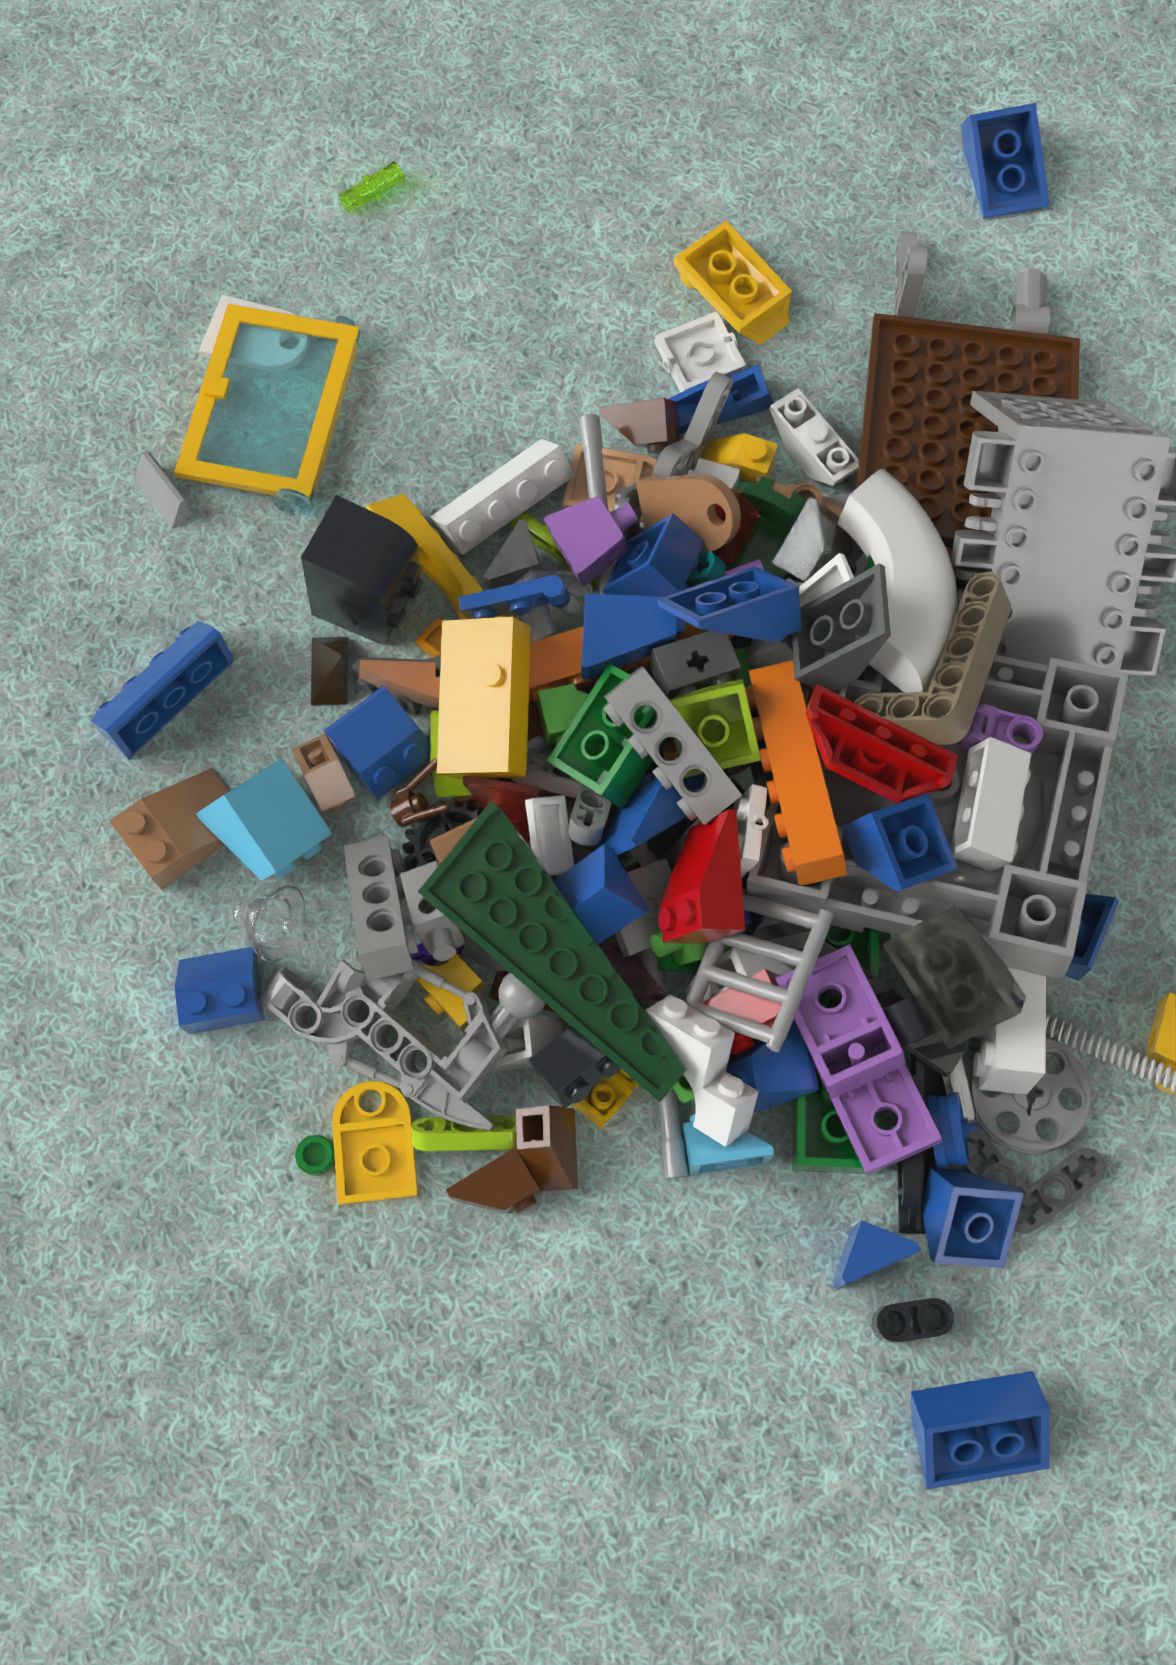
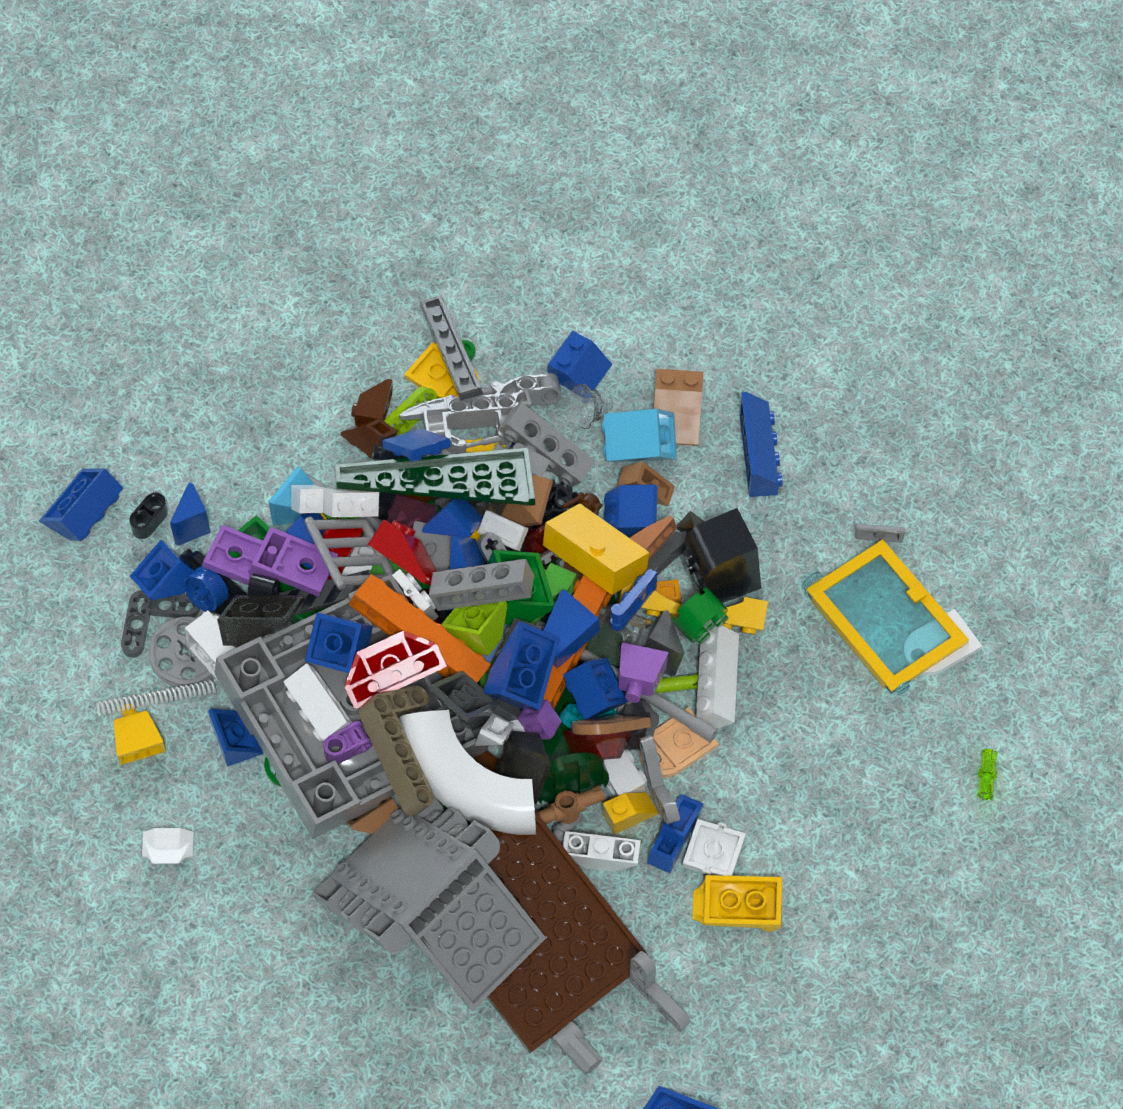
camera: 130 degrees right, 10 degrees down
(330, 1163) = (451, 348): none -> tile
(463, 527) = (700, 616): none -> green brick
(534, 1029) = (416, 444): none -> blue tile
(645, 423) = (696, 779): slope -> none

